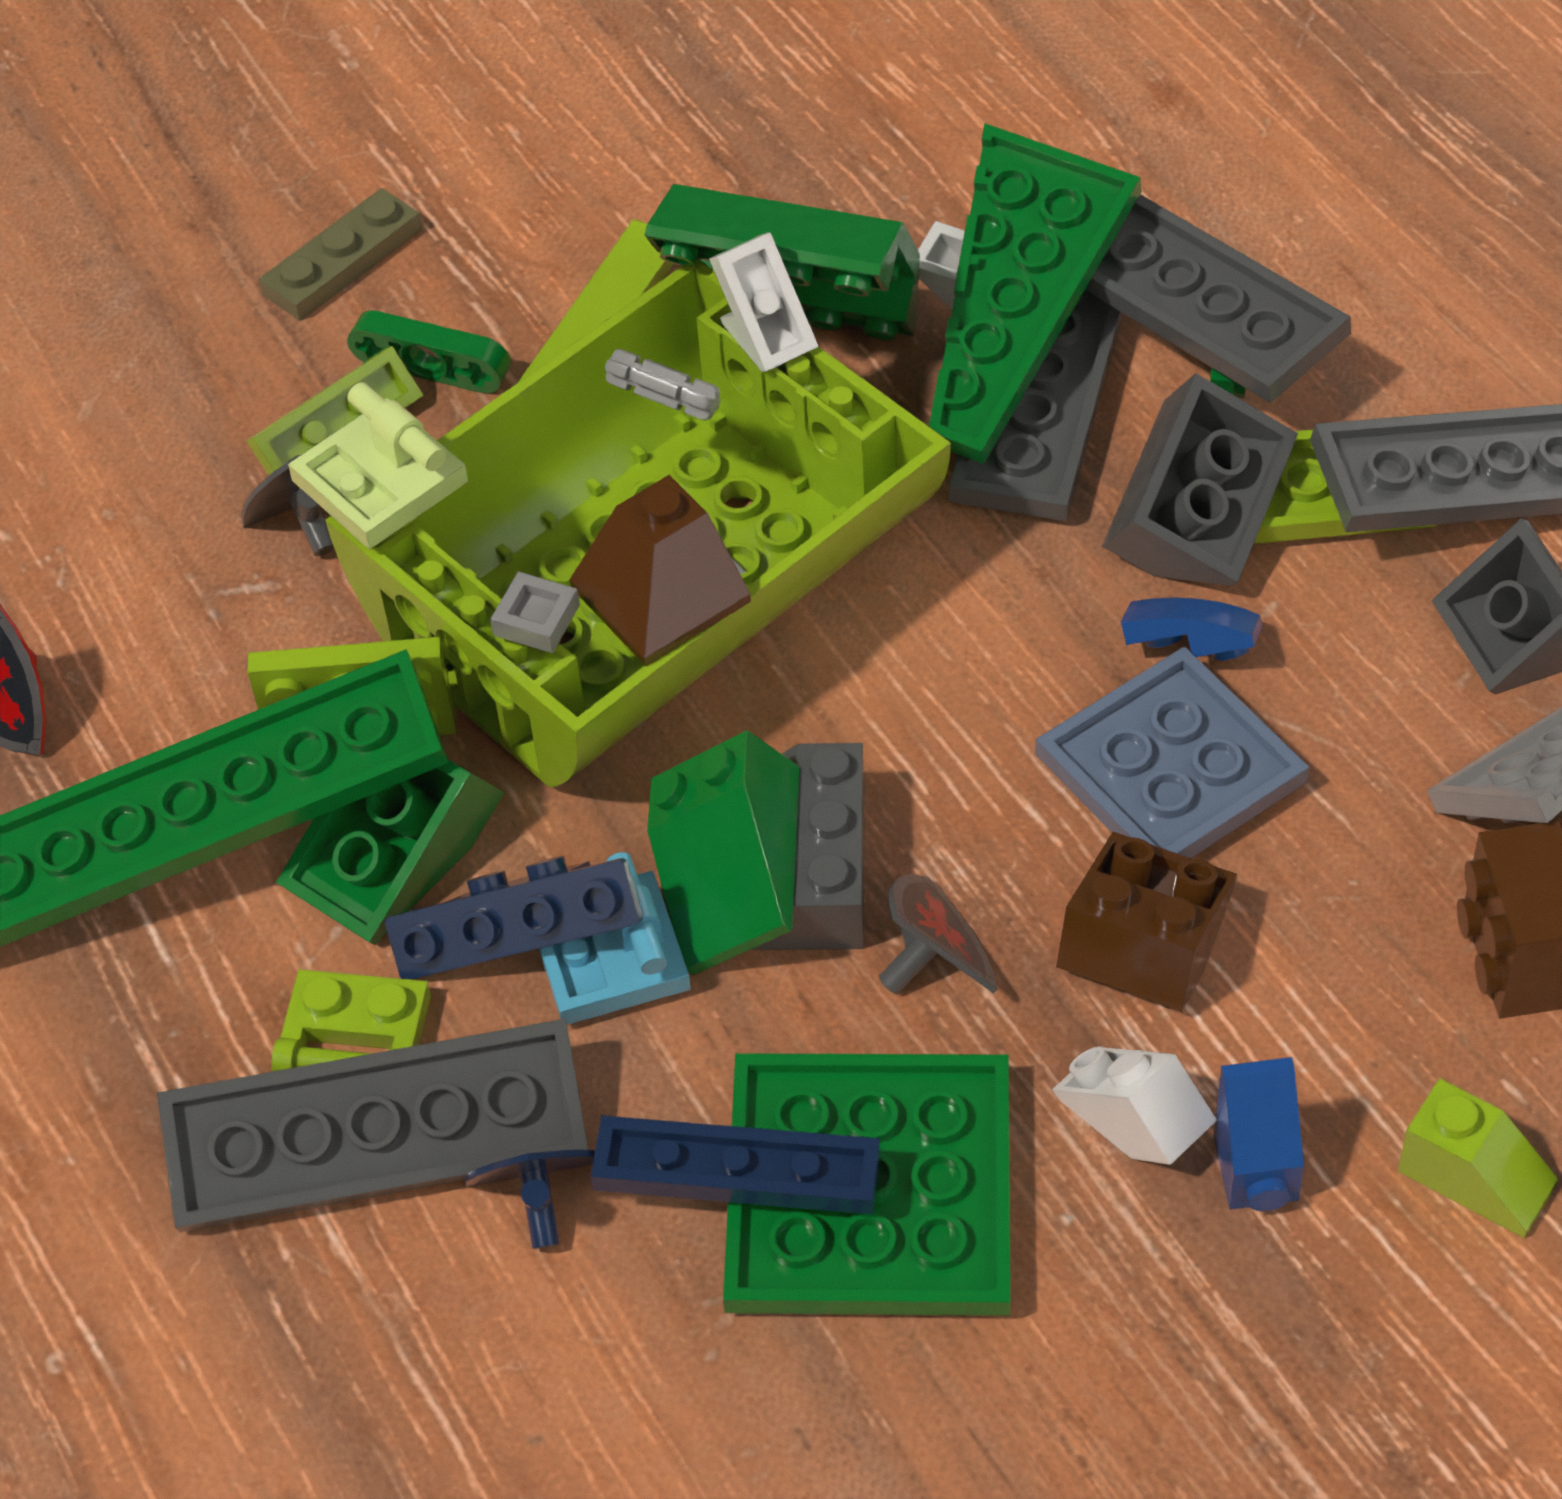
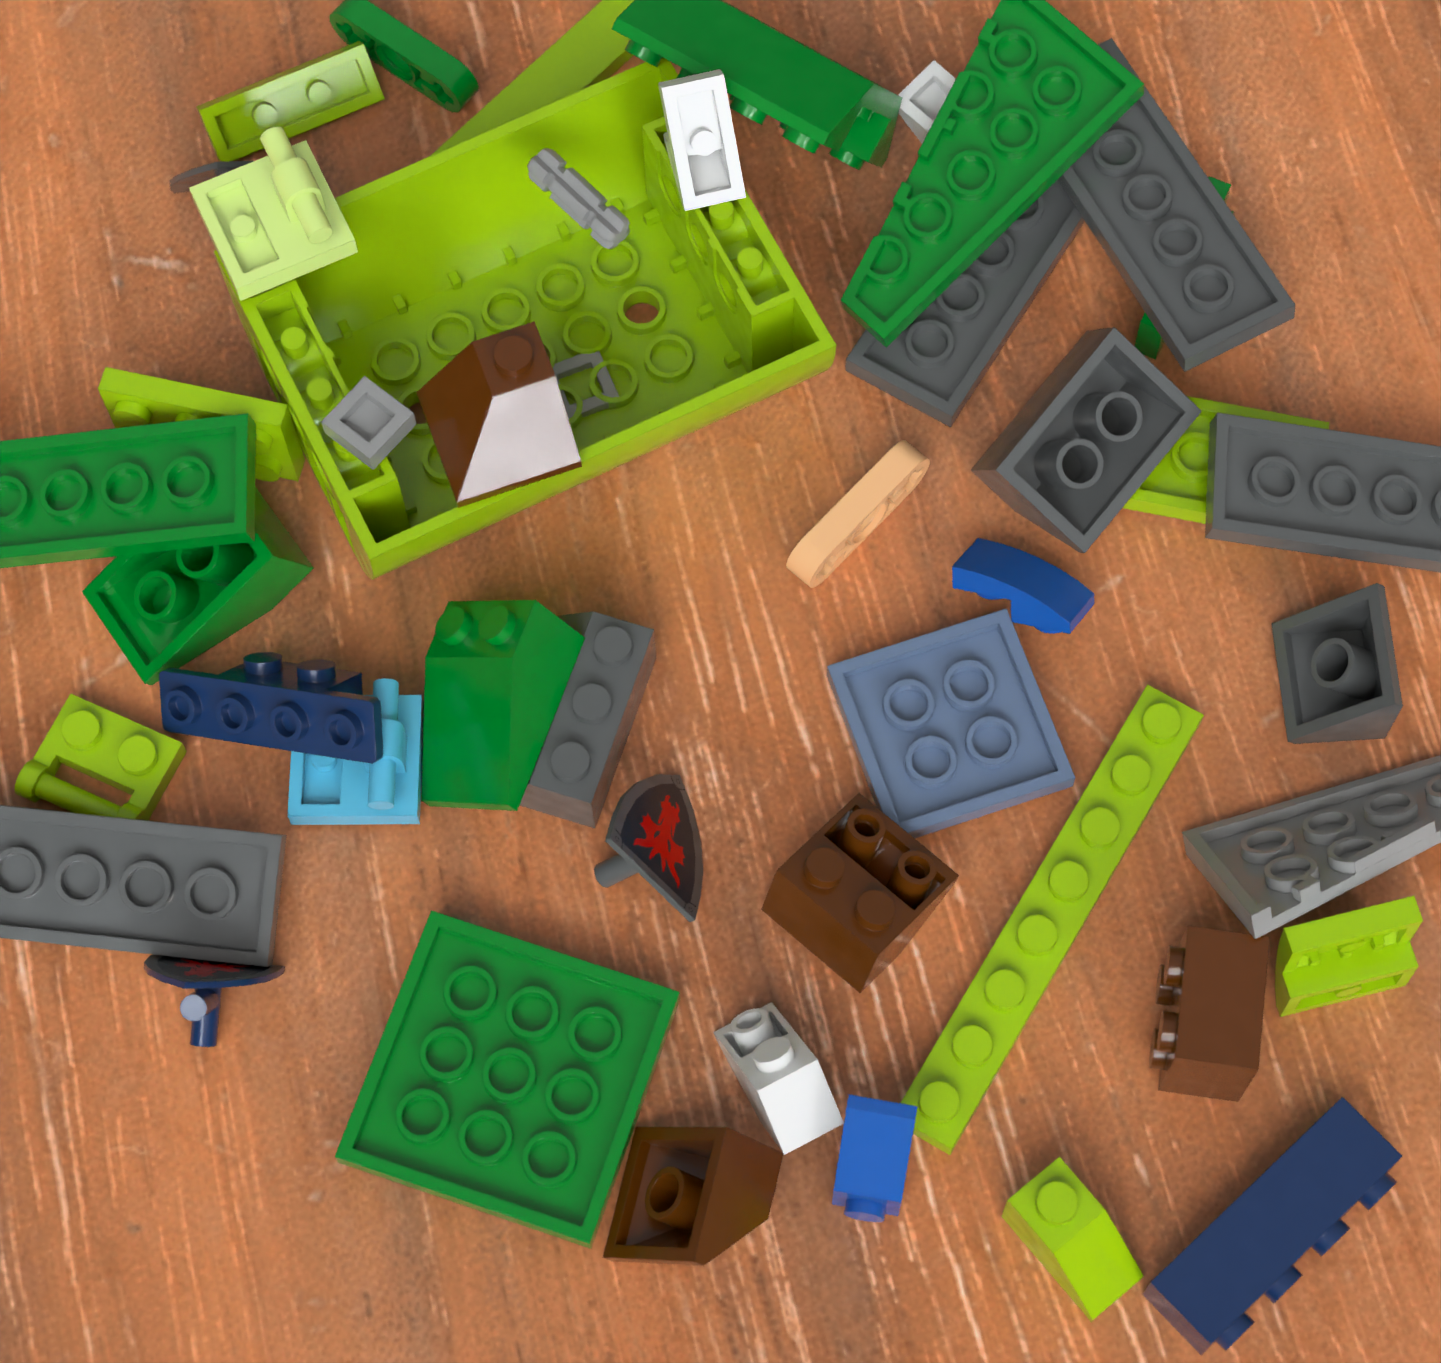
camera: 15 degrees right, 15 degrees up
(736, 1164) = (387, 1032): dark blue plate -> none
(1010, 610) = (857, 514): none -> light nougat beam
(1089, 1225) = (690, 1194): none -> reddish brown slope
(1335, 892) = (1049, 918): none -> lime plate

